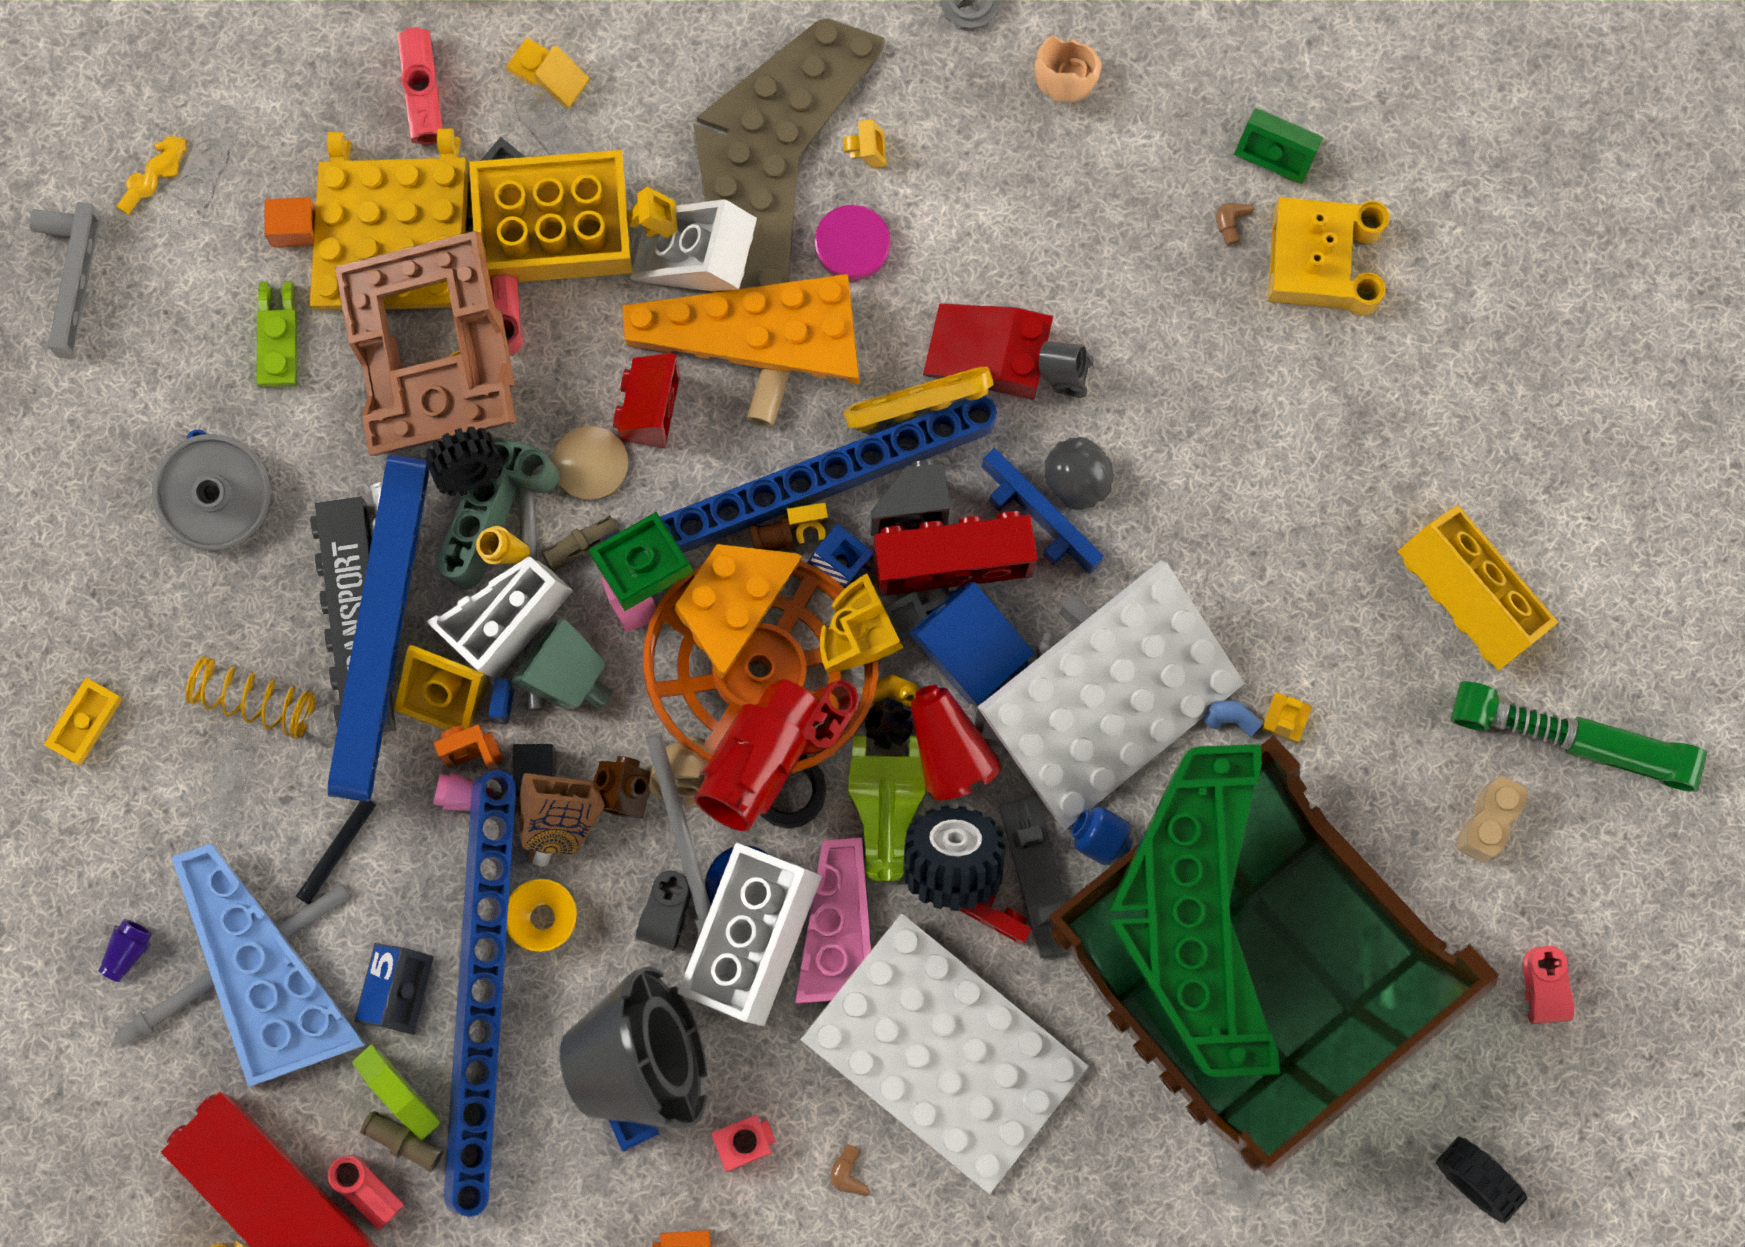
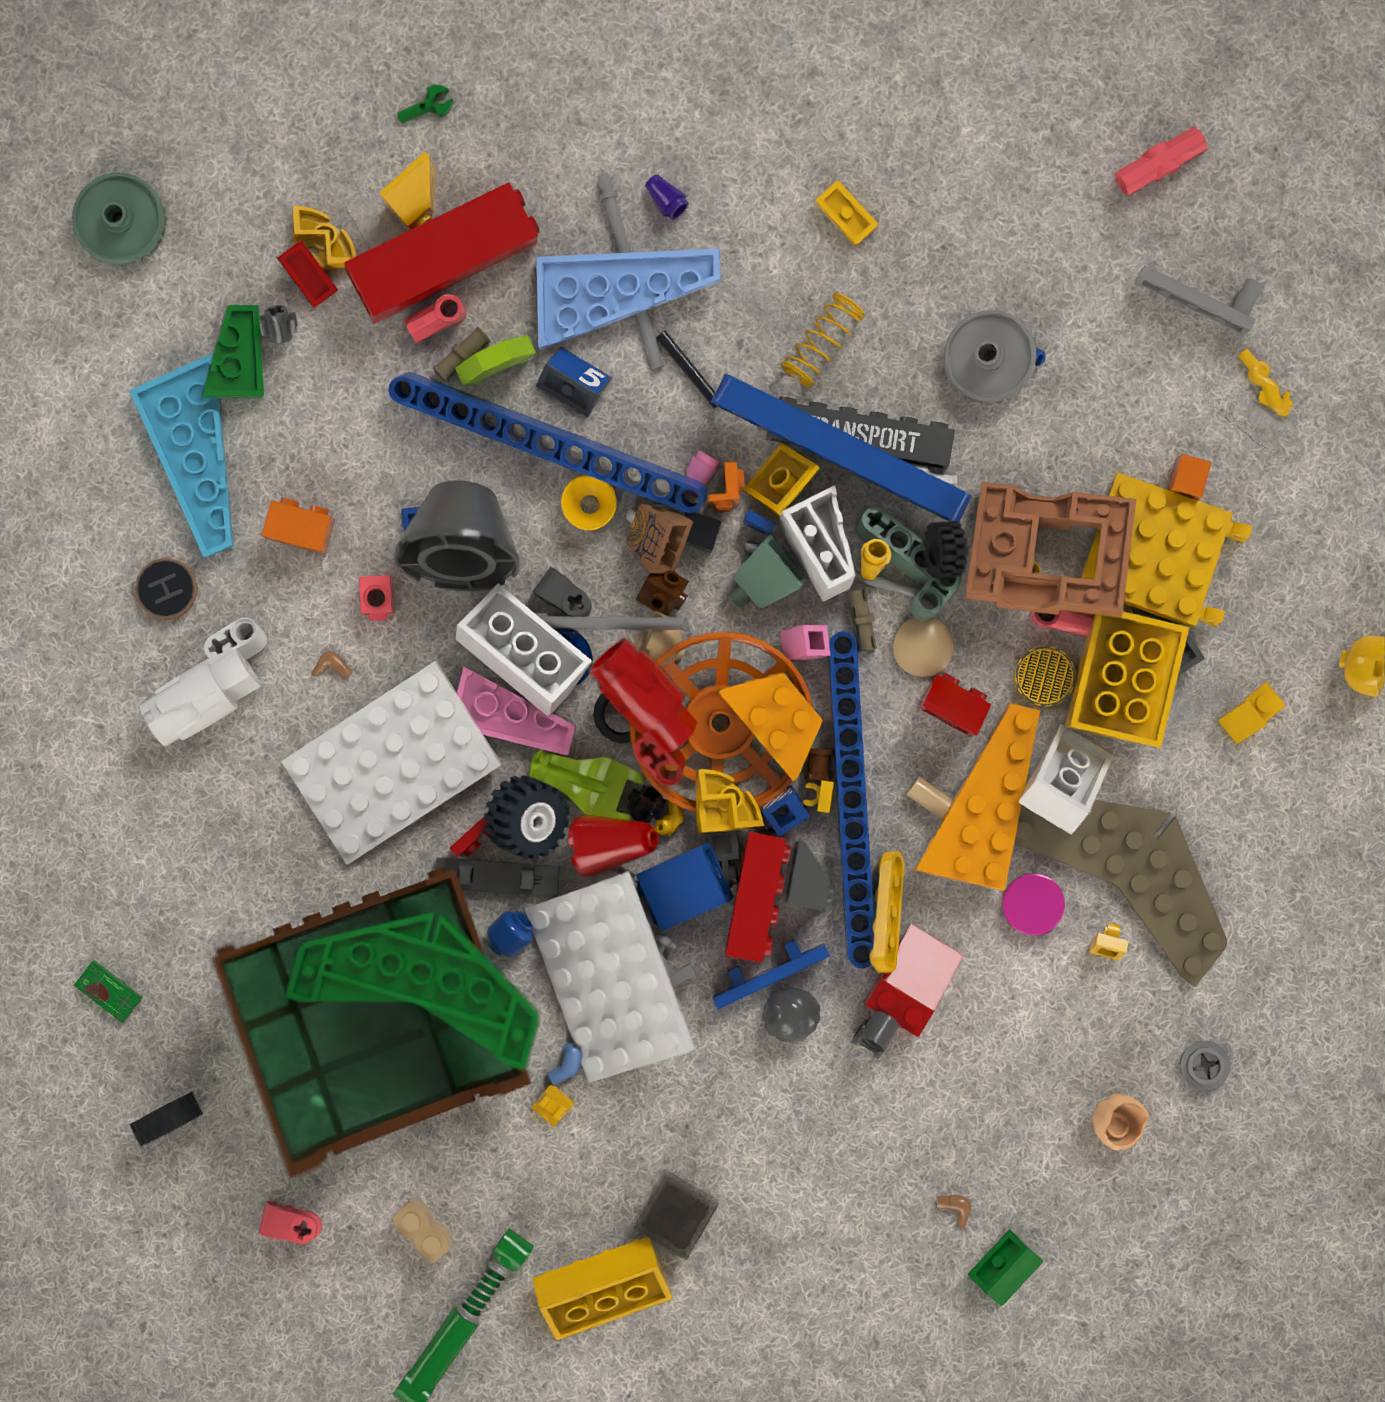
camera: 115 degrees right, 10 degrees up
(276, 338) = (1099, 440): lime hinge -> none
(418, 67) = (1289, 612): coral piece -> none
(580, 313) = (1044, 676): none -> tile
(640, 561) = (826, 658): green tile -> none
(654, 212) = (1101, 757): yellow tile -> none
(1315, 253) = (906, 1262): yellow piece -> none
(1359, 529) = (675, 1214): none -> clear smoke brick

